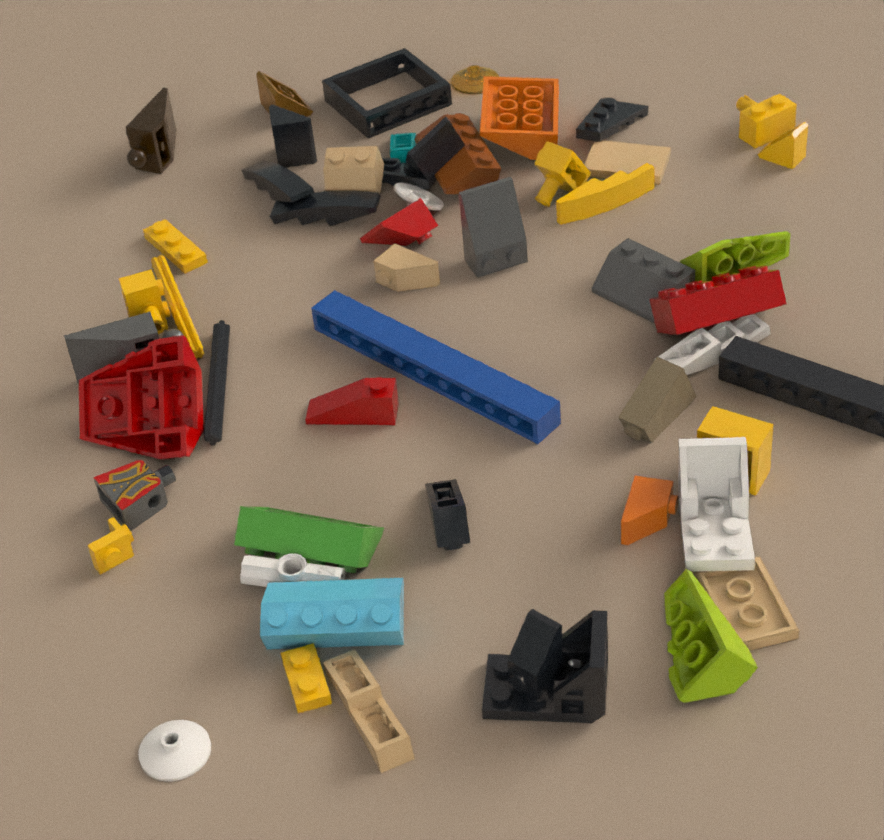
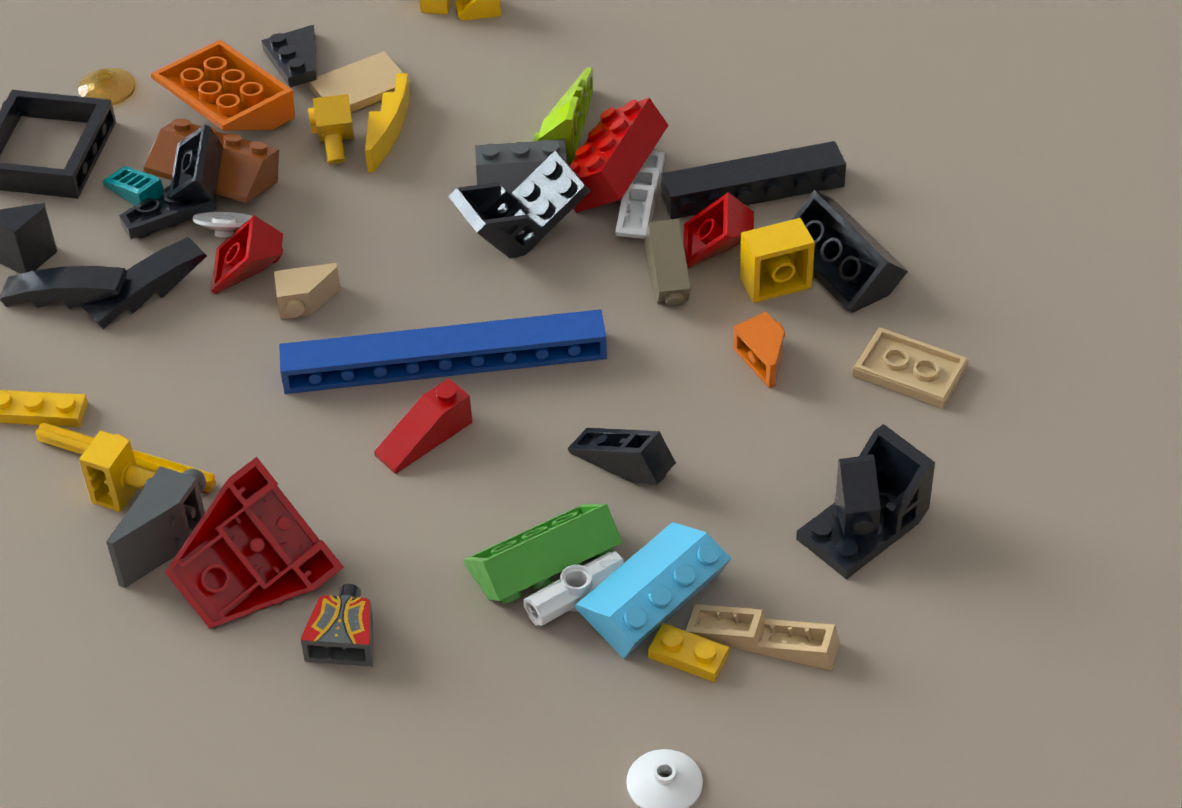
camera: 50 degrees left, 5 degrees up
(112, 548) = (391, 673): yellow bracket -> none
(217, 383) = (229, 465): black axle -> none
(353, 169) = (138, 230): tan slope -> none
(492, 227) = (354, 206): dark grey slope -> none
(581, 312) = (522, 218): none -> black bracket
(704, 646) = (930, 416): lime wedge -> none
(715, 504) = (807, 303): white bracket -> none
(740, 397) = (716, 229): none -> red slope
(805, 482) = (847, 256): none -> black slope

